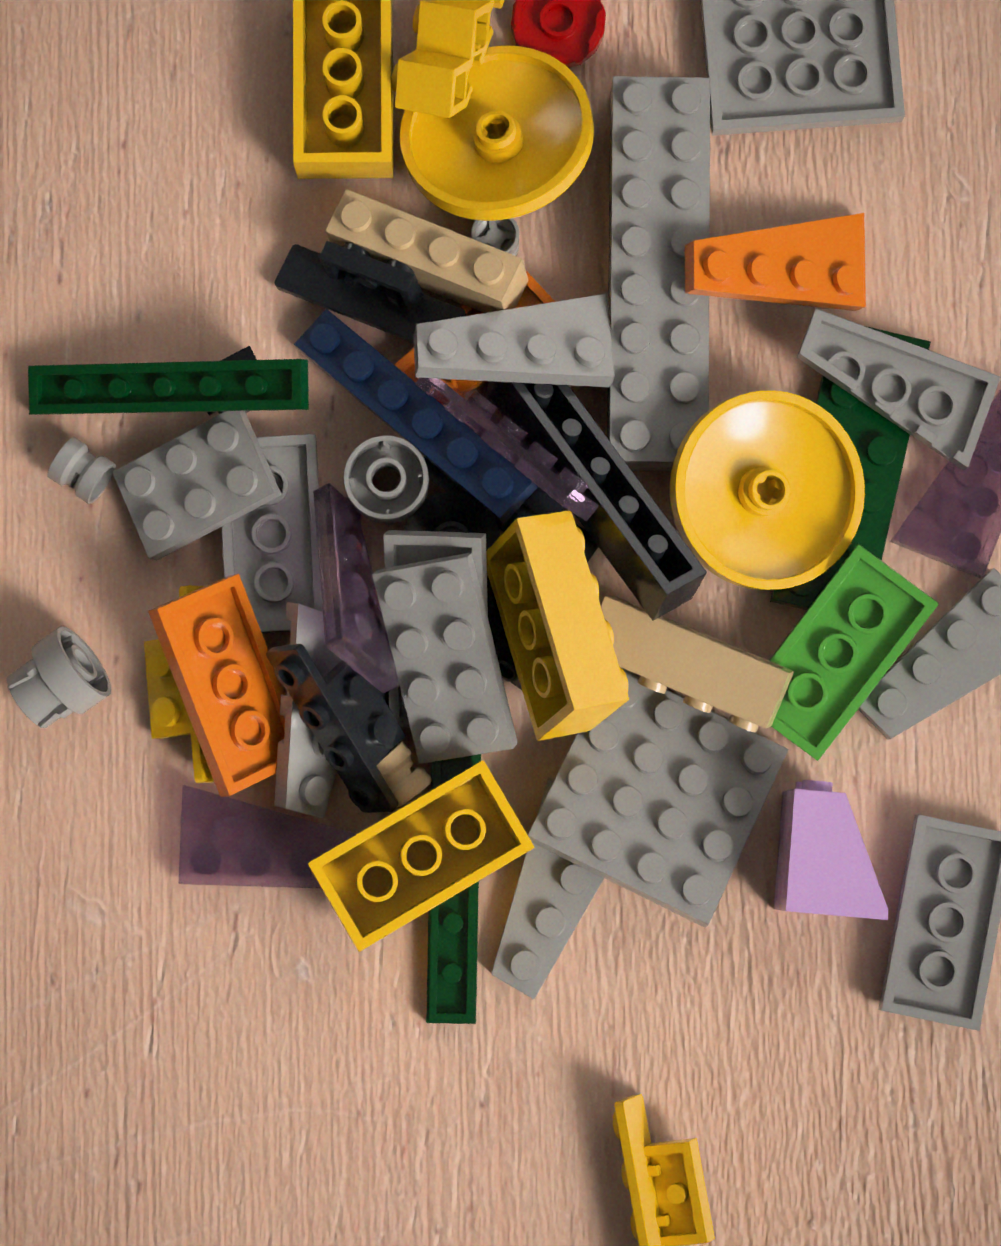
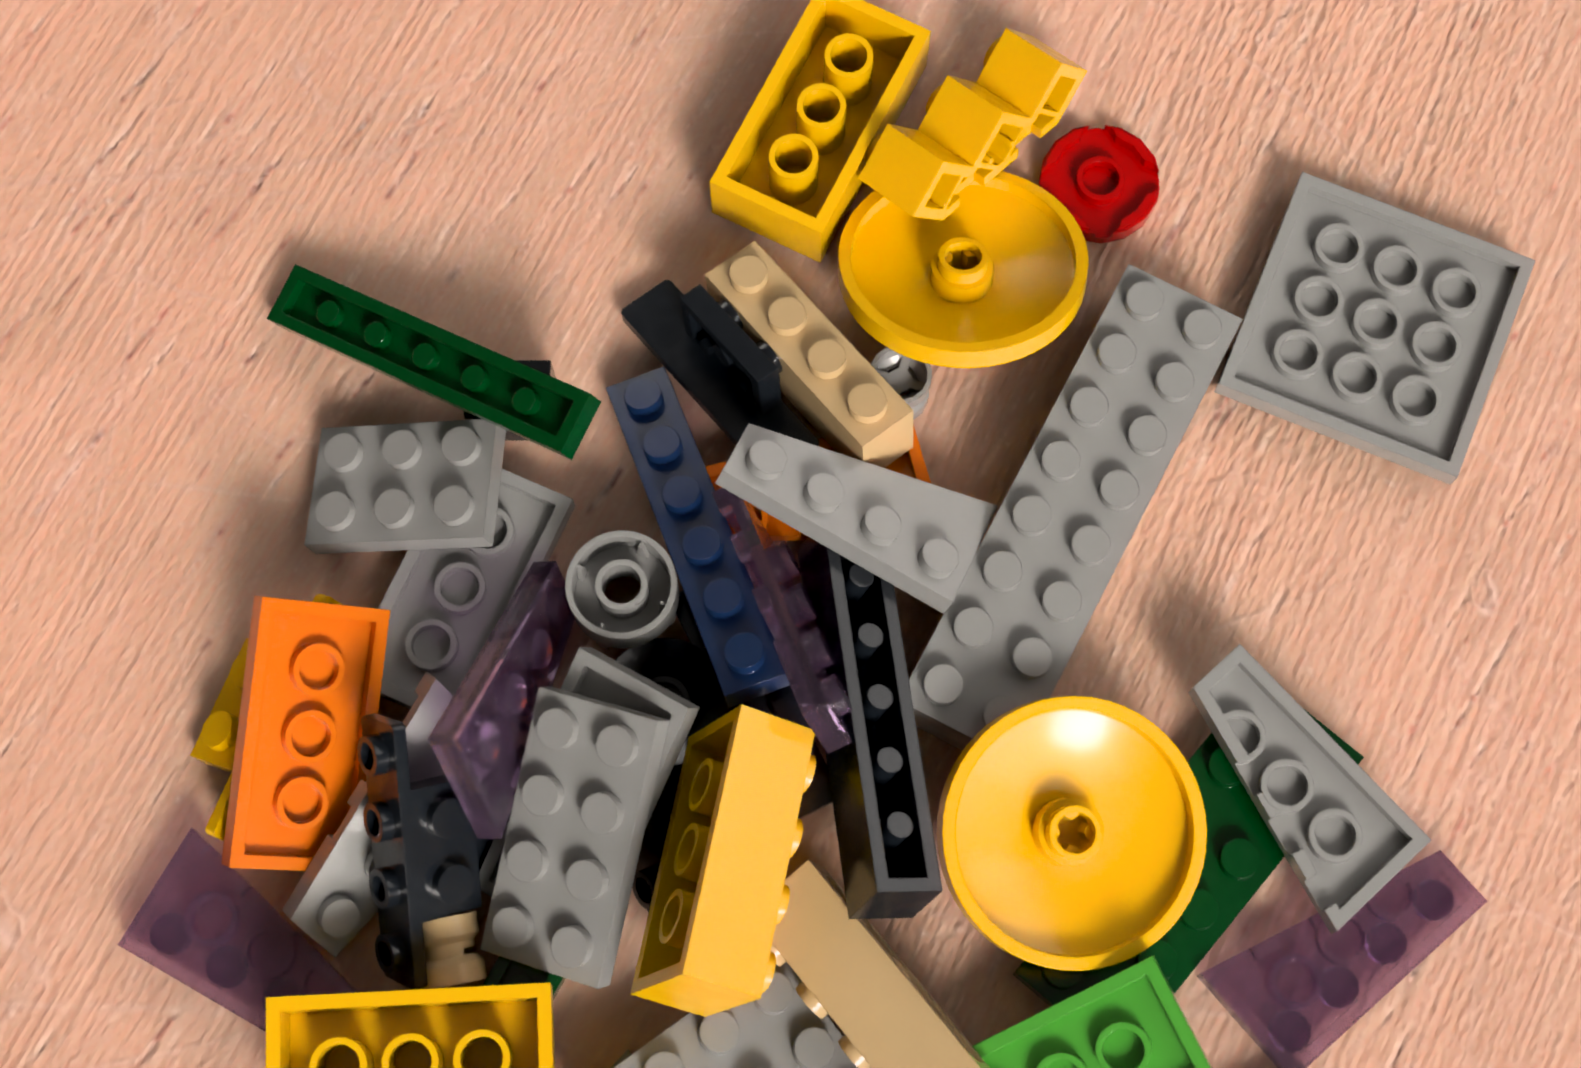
camera: 30 degrees right, 10 degrees down
(59, 679) = (121, 628): light grey piece -> none
(81, 470) = (287, 408): light grey wheel -> none
(789, 264) = (1231, 578): orange wing -> none

